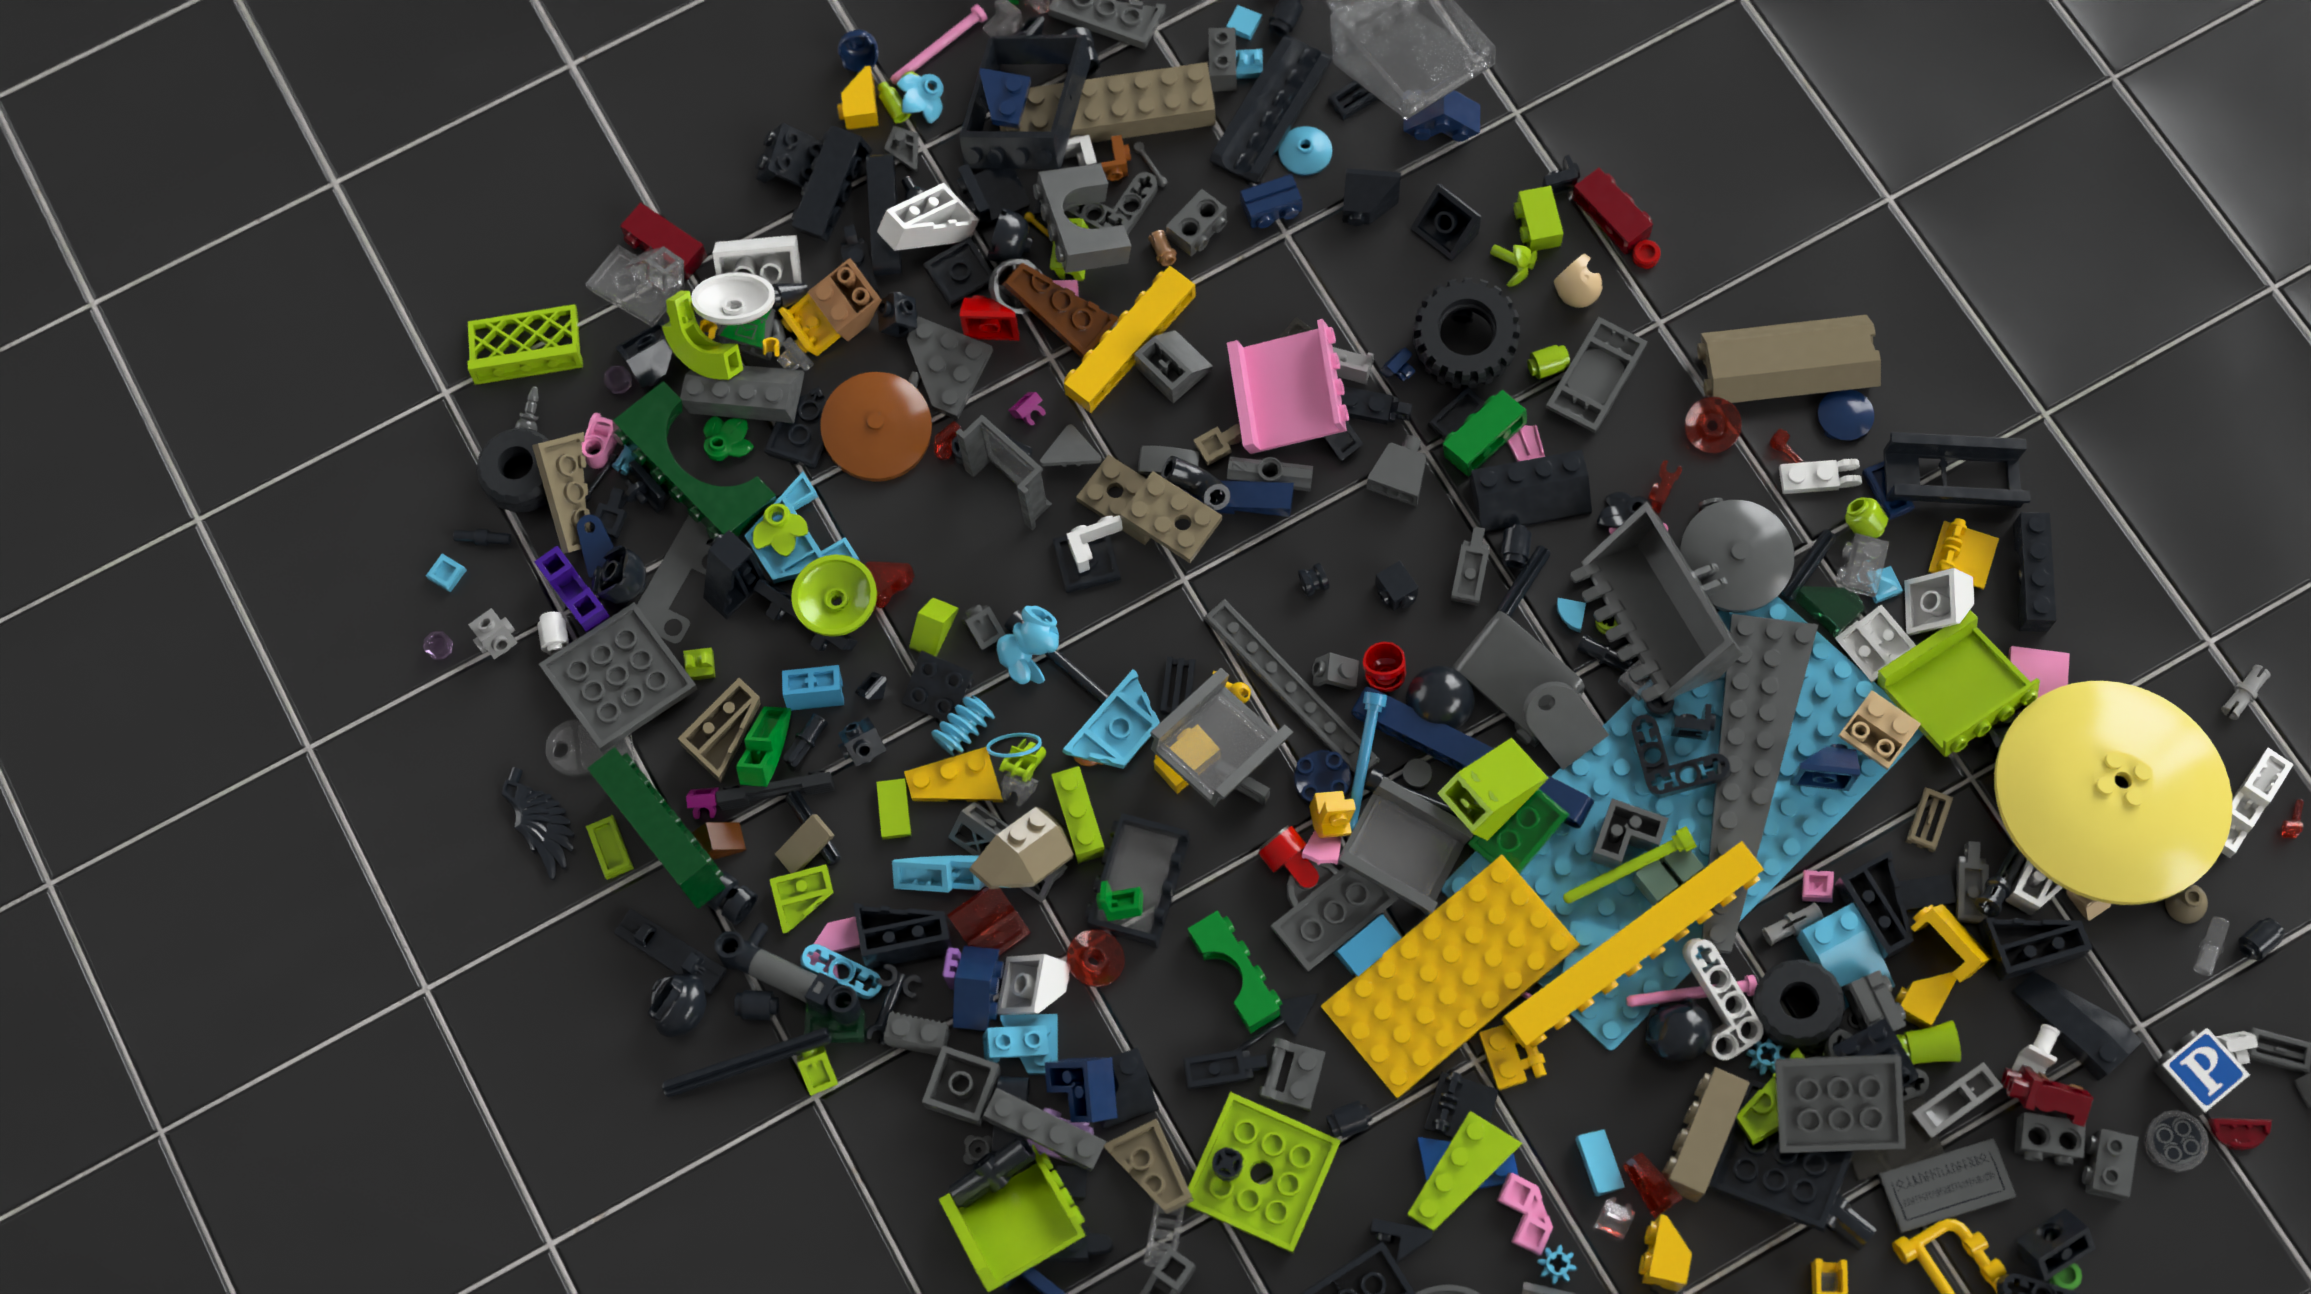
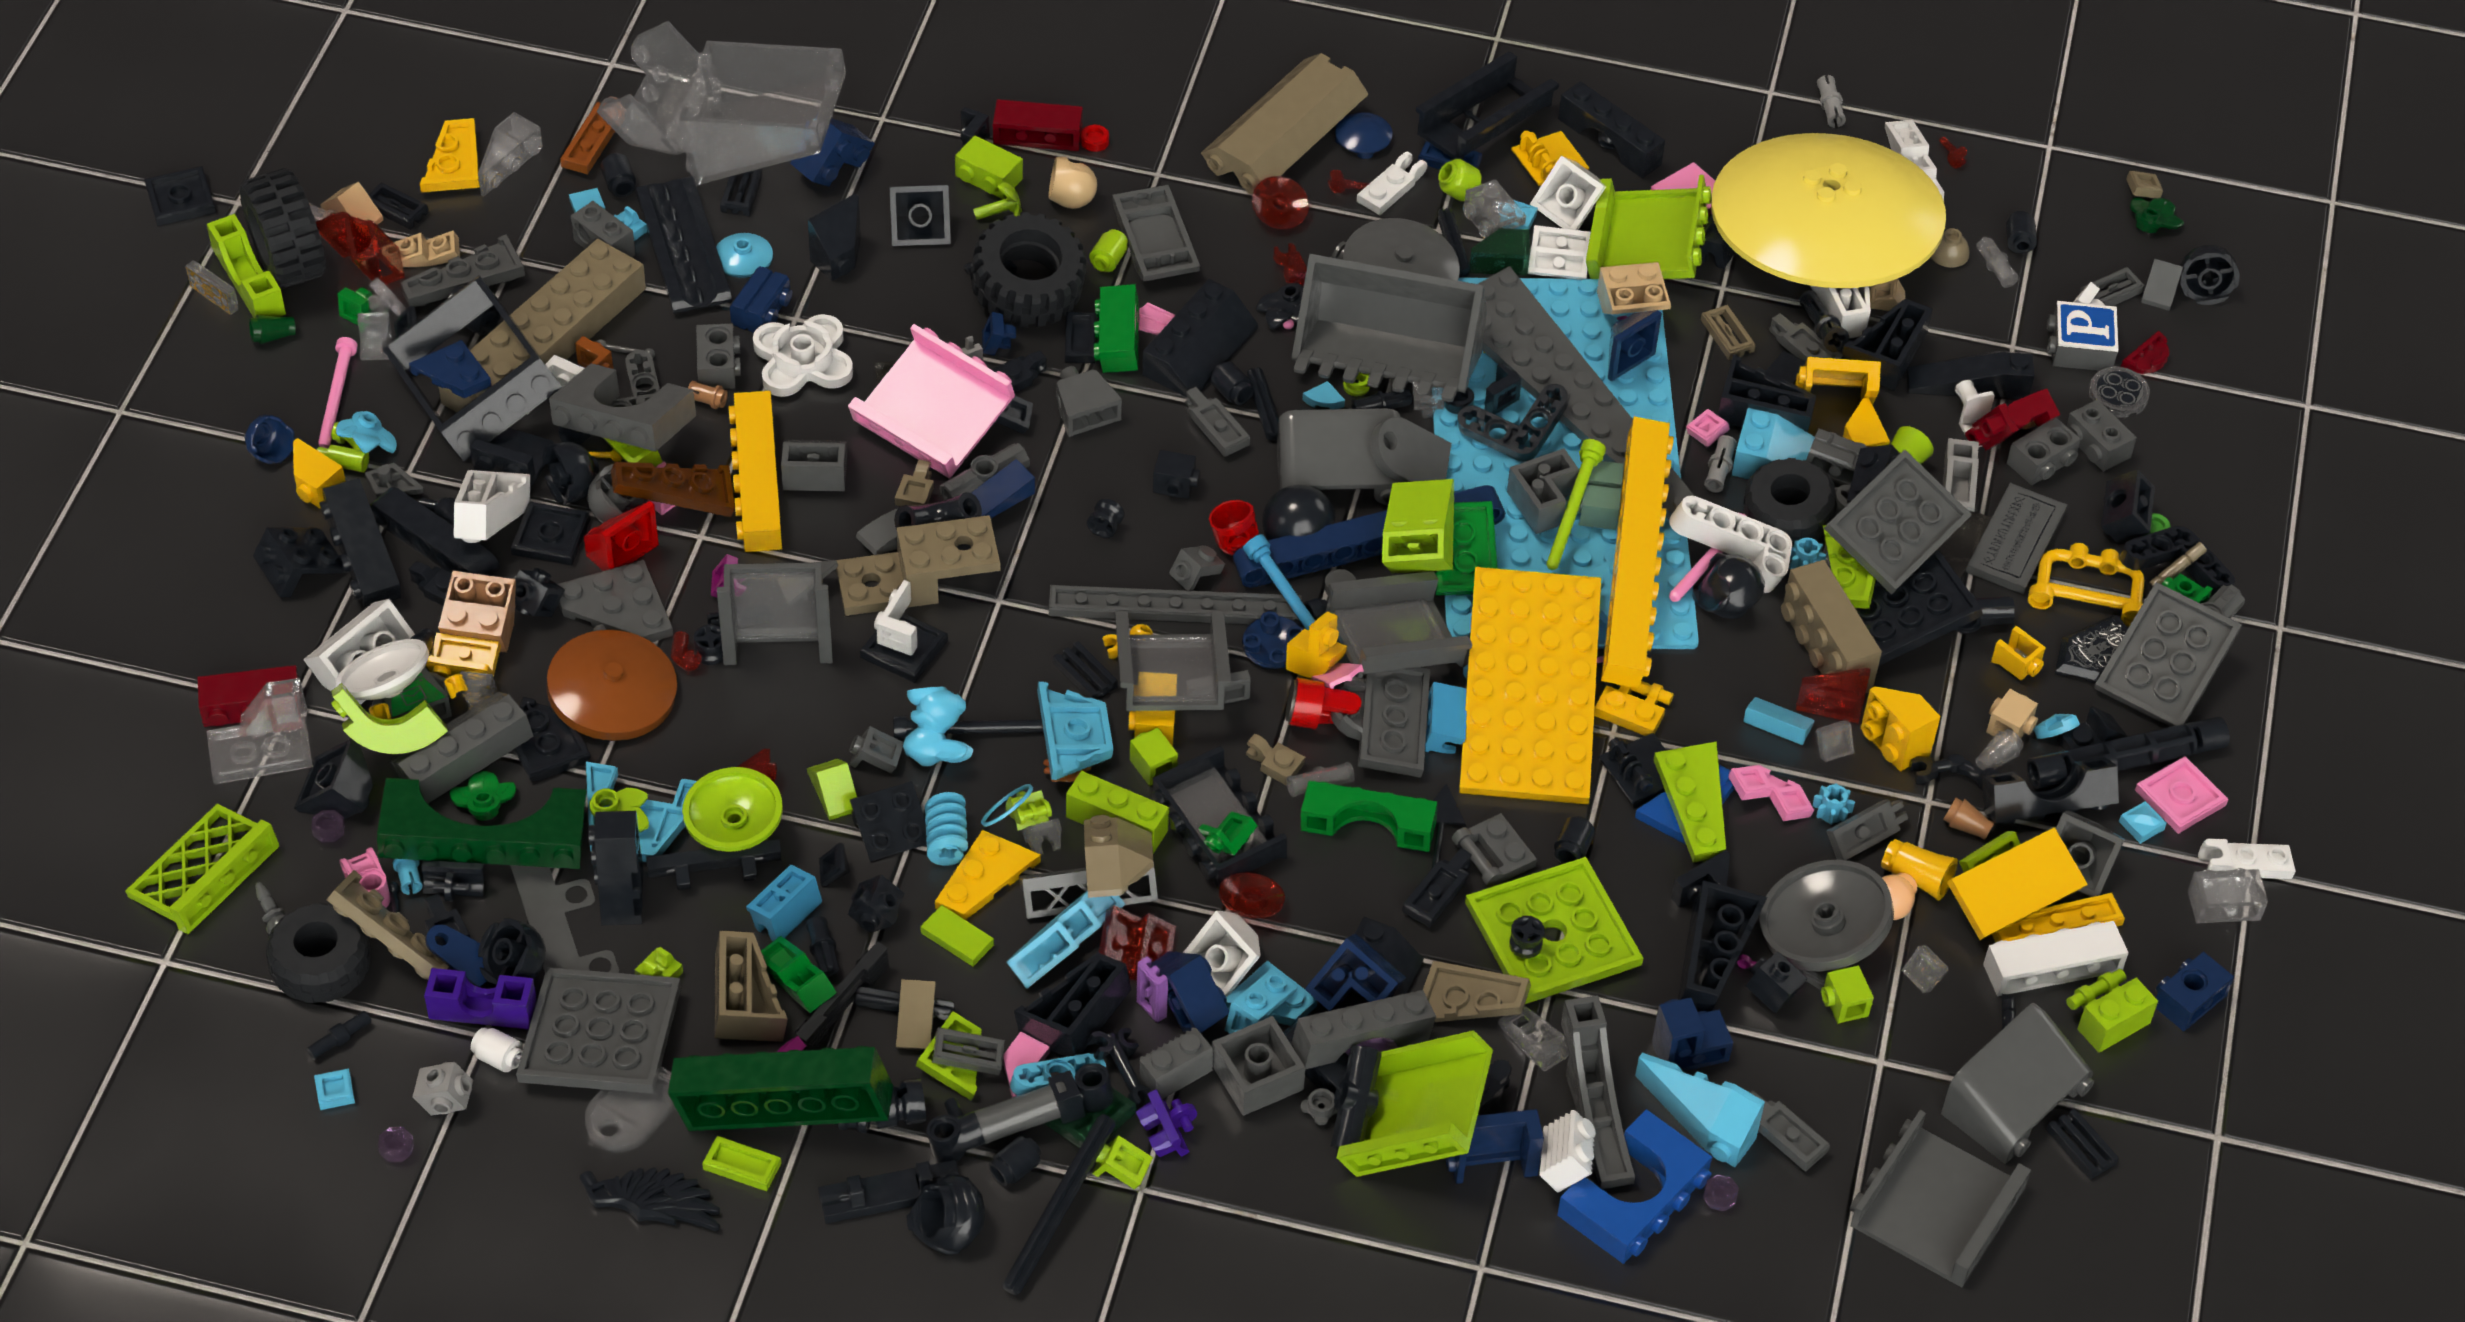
camera: 55 degrees left, 20 degrees down
(790, 882) = (968, 1056): none -> dark grey tile
(872, 1070) = (1158, 1113): none -> dark purple hips
(1147, 793) = (1152, 754): none -> lime brick
(1226, 873) = (1276, 761): none -> dark tan plate
(1237, 912) = (1335, 775): none -> clear pin
(1255, 270) = (802, 355): none -> white plant

